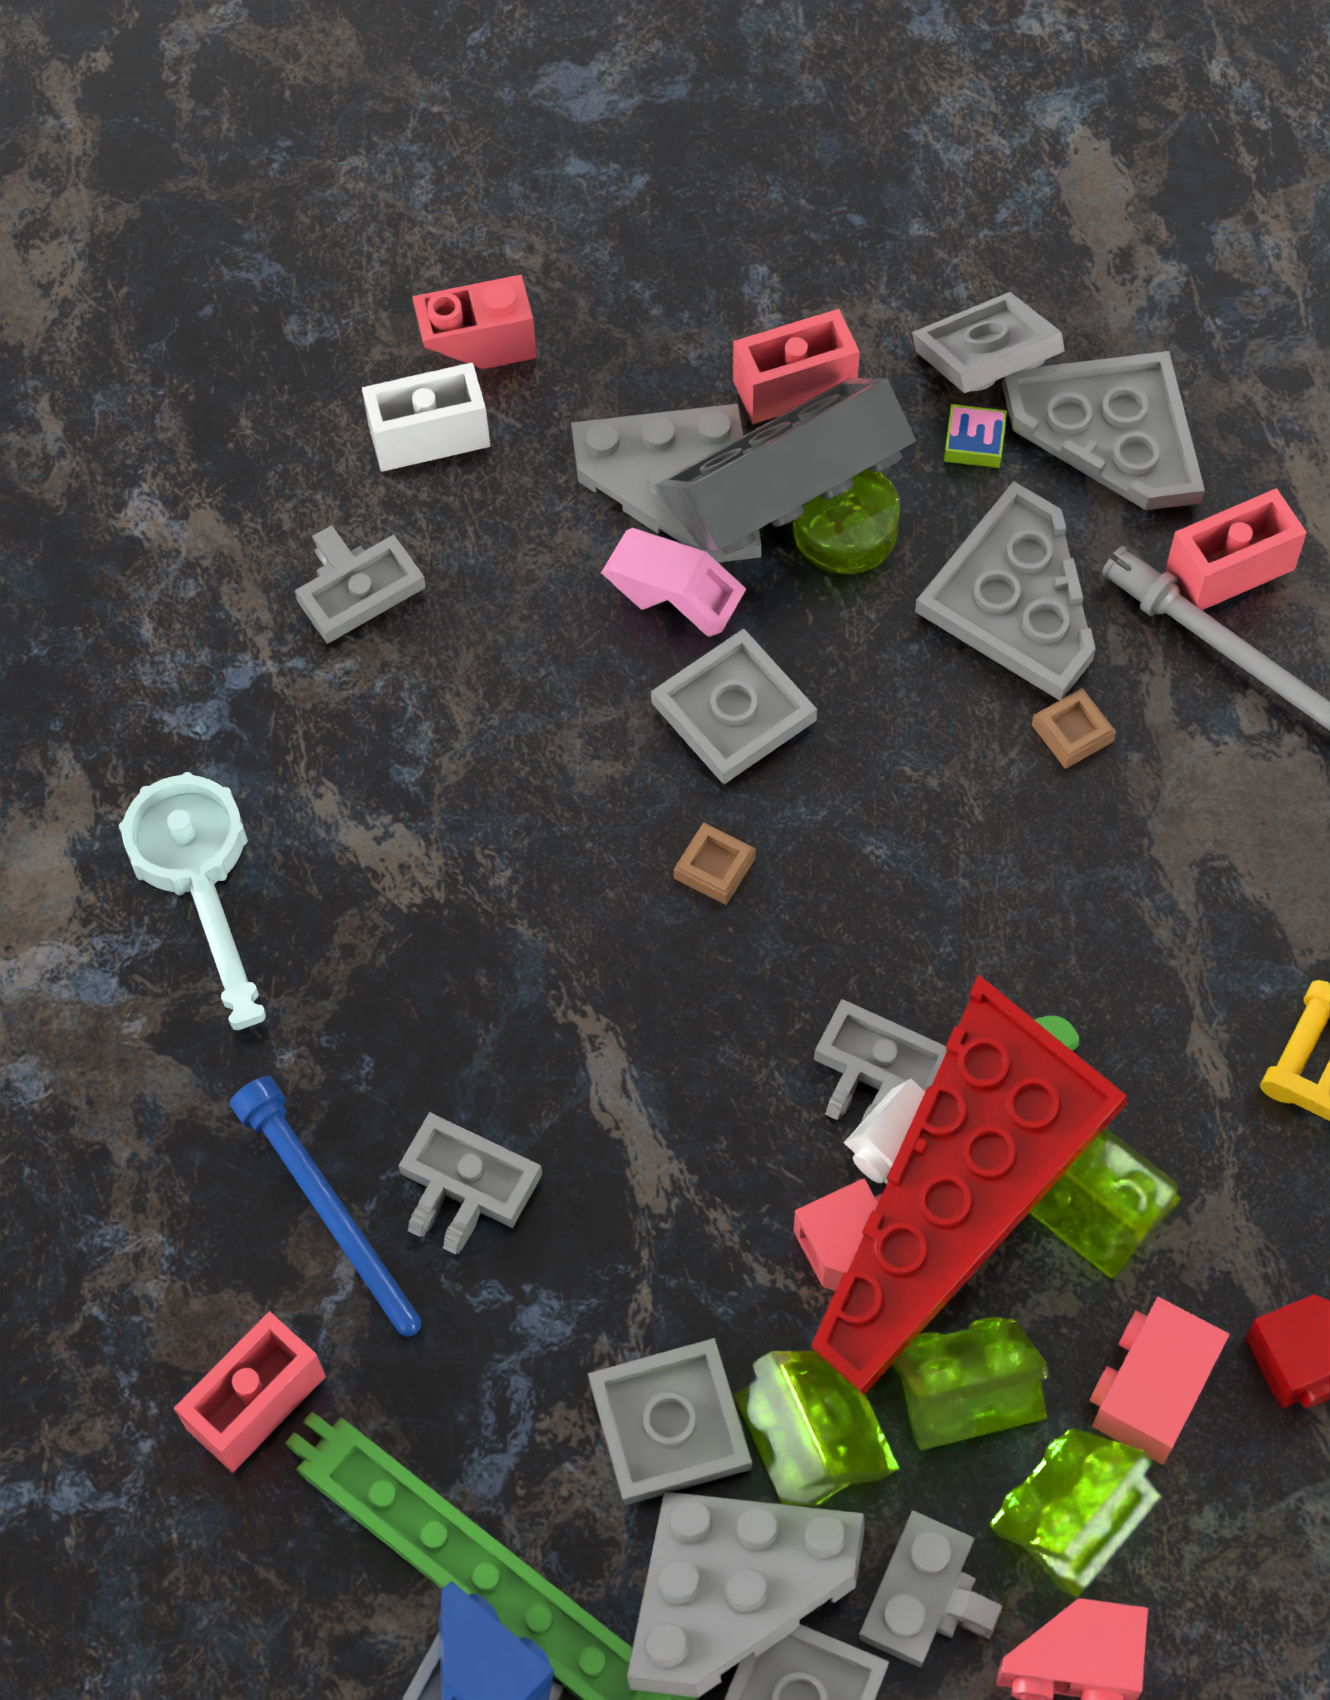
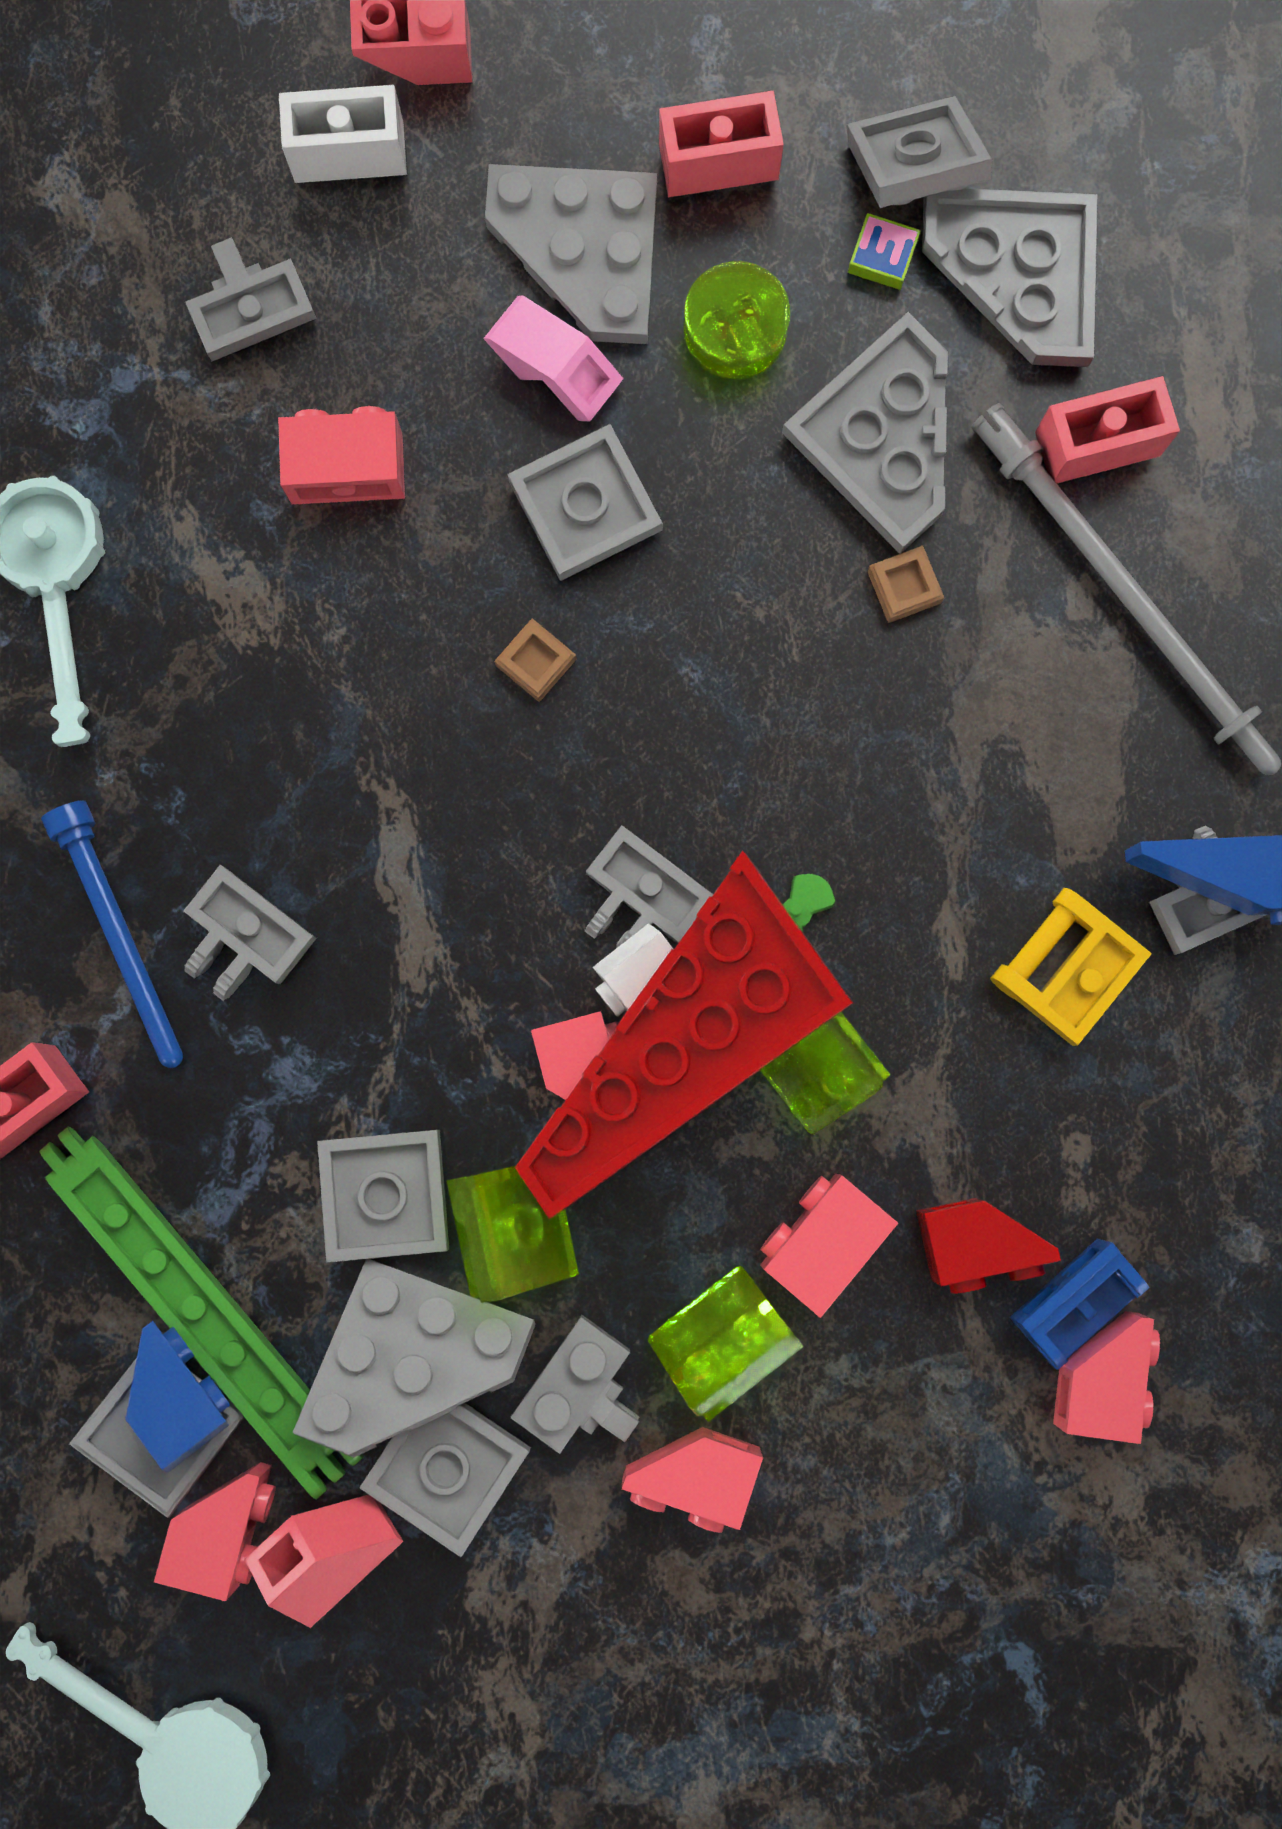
camera: 10 degrees right, 20 degrees up
(480, 705) = (341, 456): none -> coral brick
(789, 463) = (687, 257): dark grey slope -> none
(971, 1382) = (659, 1210): clear neon green bracket -> none

